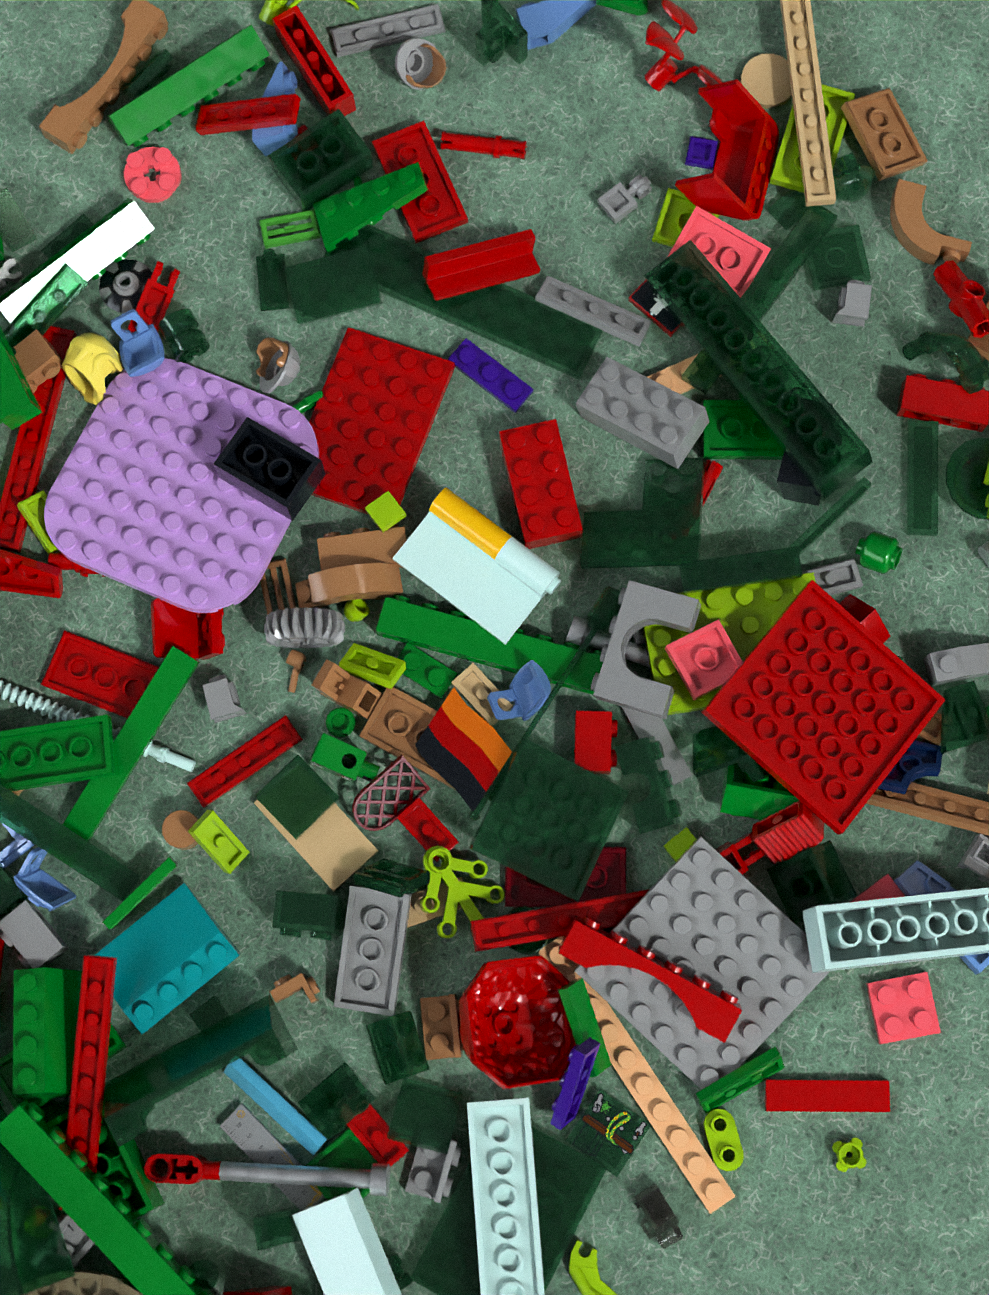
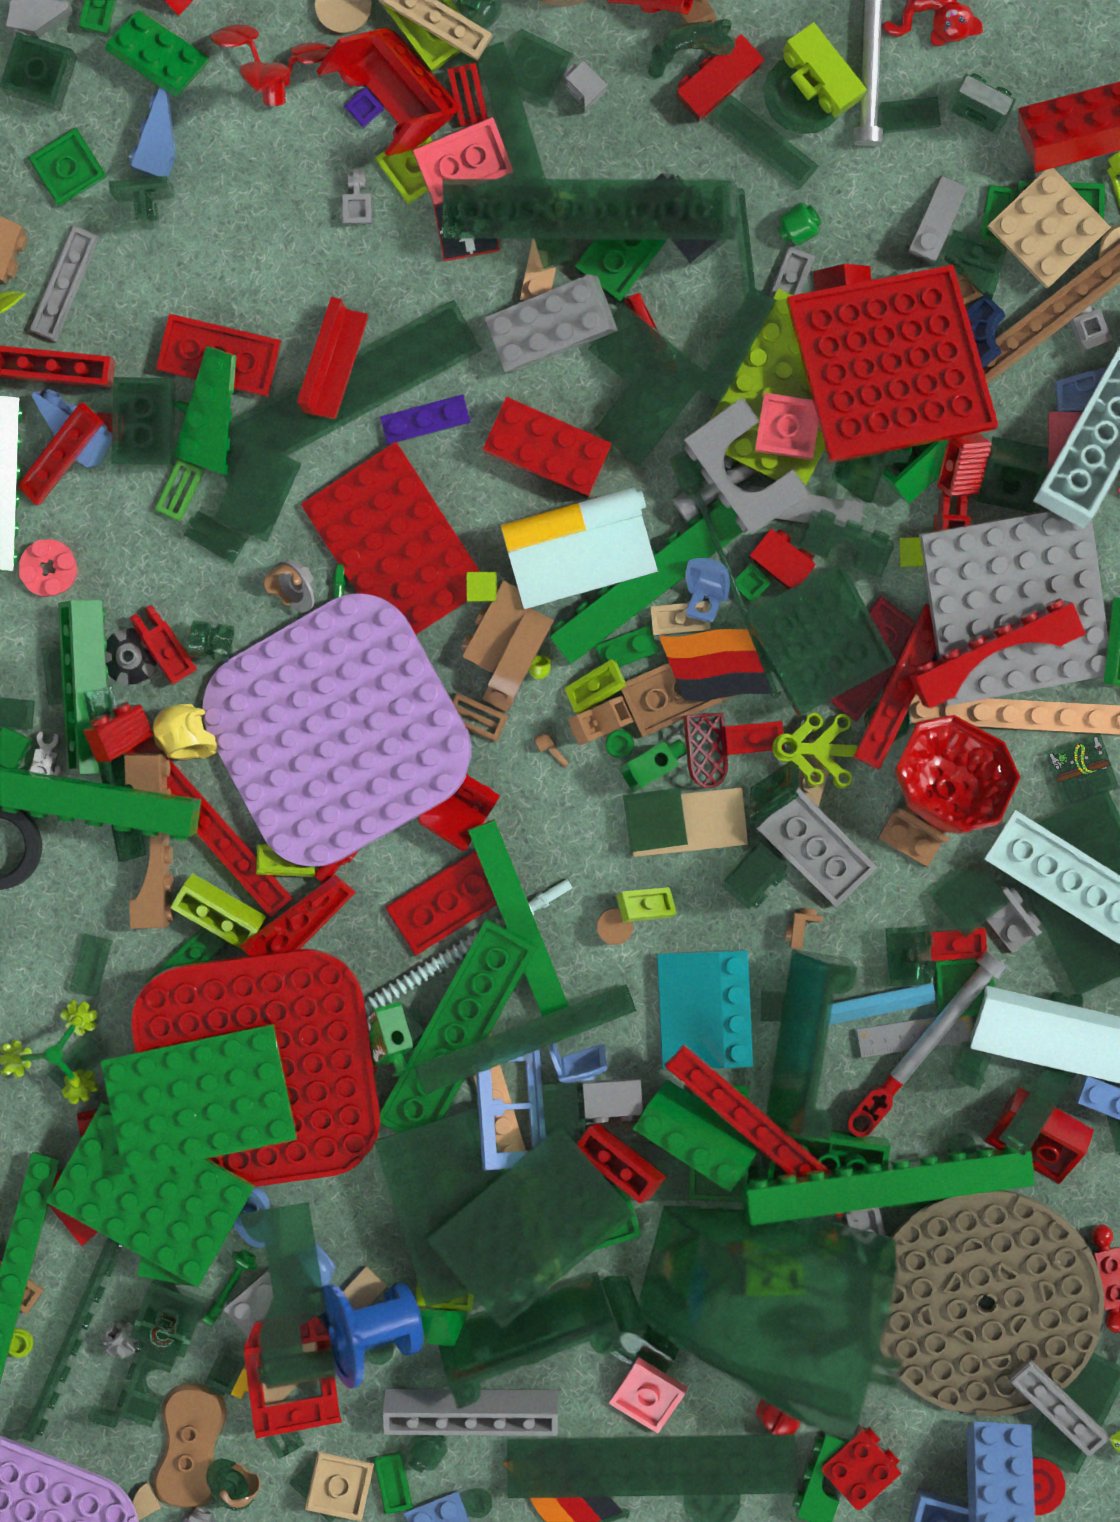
camera: 60 degrees left, 10 degrees up
(52, 310) = (117, 732): none -> red brick
(139, 350) = (198, 684): medium blue piece -> none
(140, 893) = (640, 992): green tile -> none
(222, 699) = (533, 822): light grey window -> none
(244, 761) = (595, 840): red tile -> none
(269, 468) = (385, 653): black brick -> none
(304, 628) = (527, 718): light grey gear -> none
(397, 1047) = (902, 881): clear green bracket -> none
(419, 64) = (120, 280): light grey piece -> none
(484, 145) = (225, 280): red pin -> none
(555, 731) = (752, 582): none -> green plate
(574, 1083) = (1029, 768): dark purple plate -> none
(583, 1021) = (994, 729): green tile -> none
(593, 310) = (433, 297): light grey tile -> none
(768, 210) = (462, 69): none -> red tile

